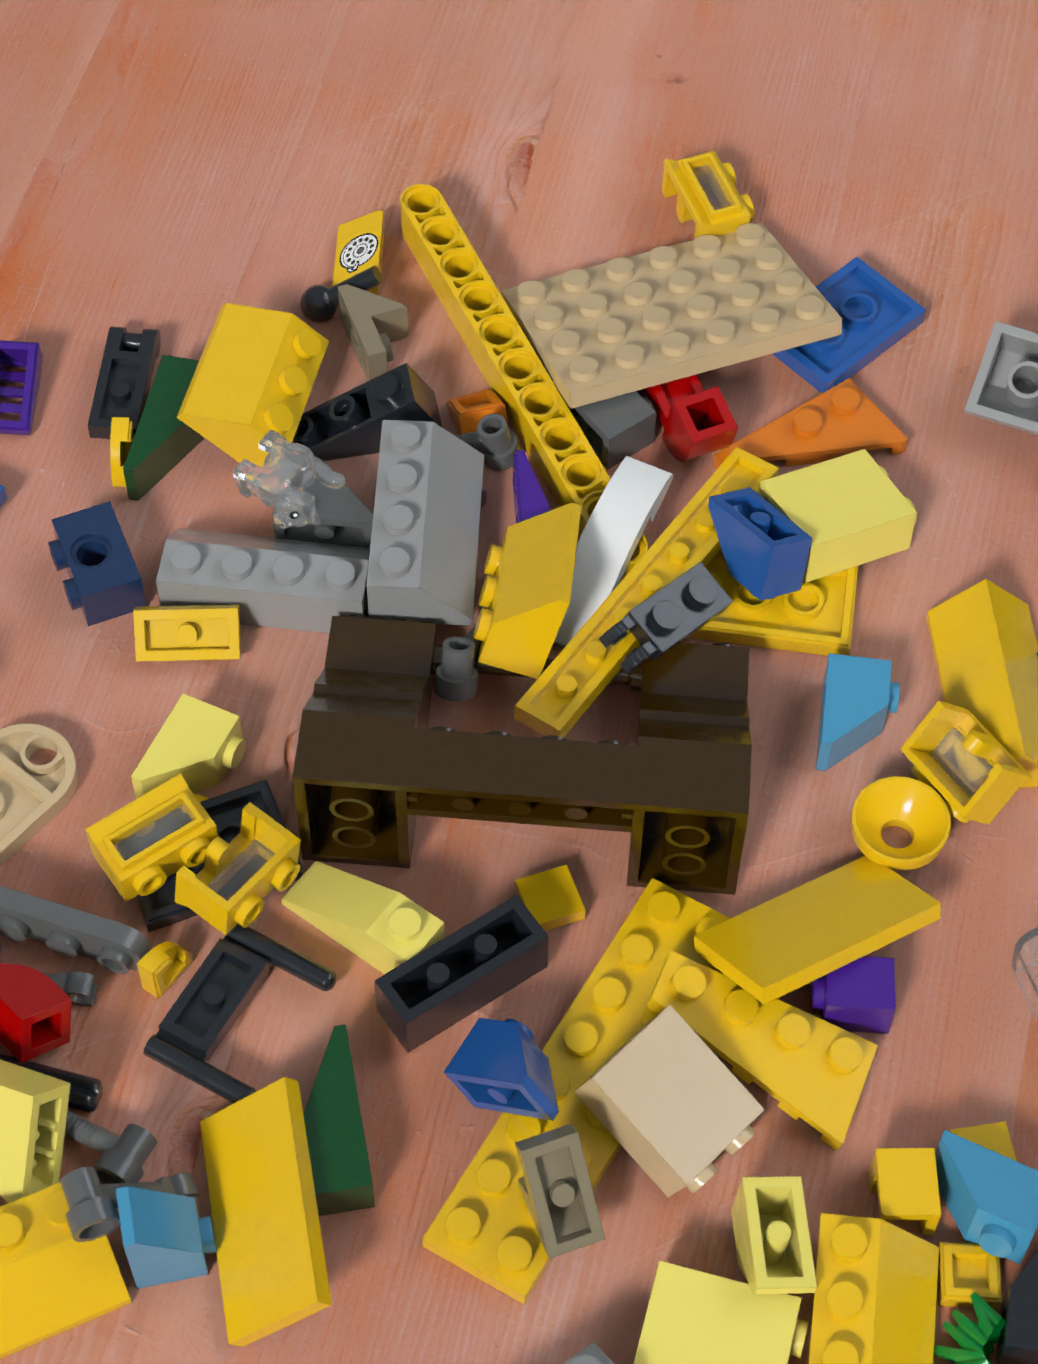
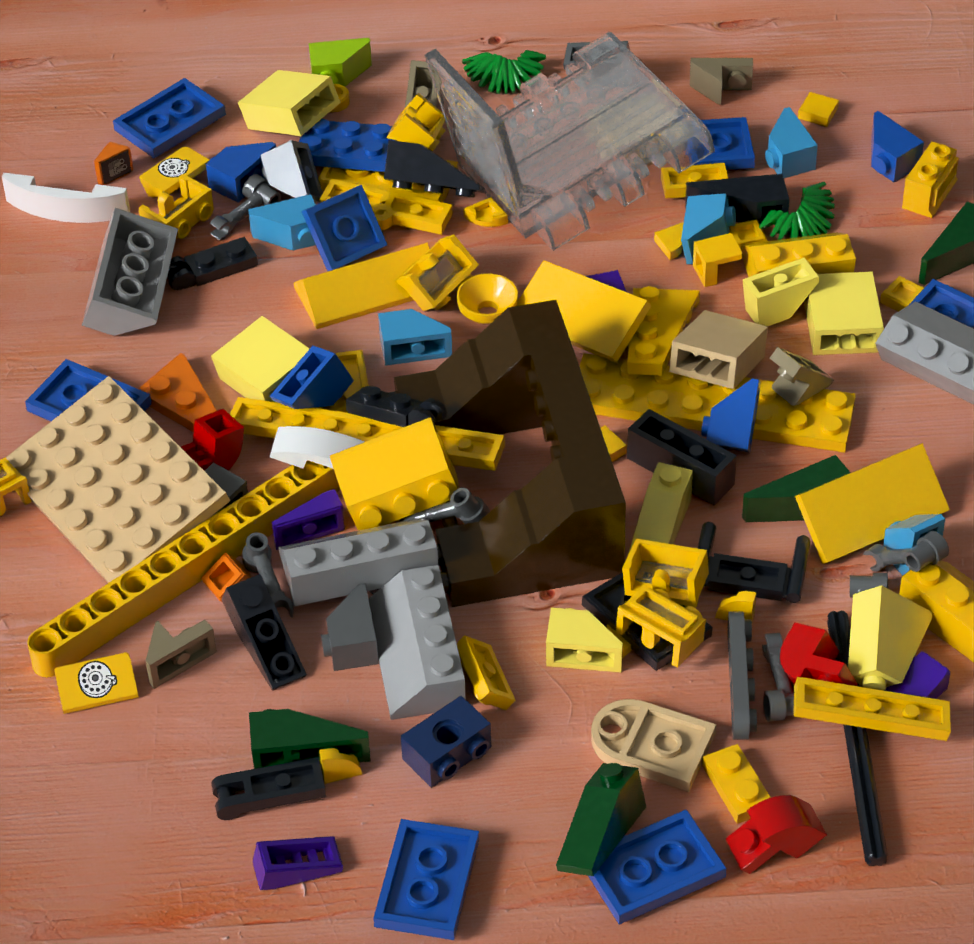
camera: 105 degrees left, 10 degrees down
(252, 379) = (259, 682): yellow slope -> none
(283, 478) = (355, 629): clear animal -> none
(321, 302) = (148, 696): black bar -> none

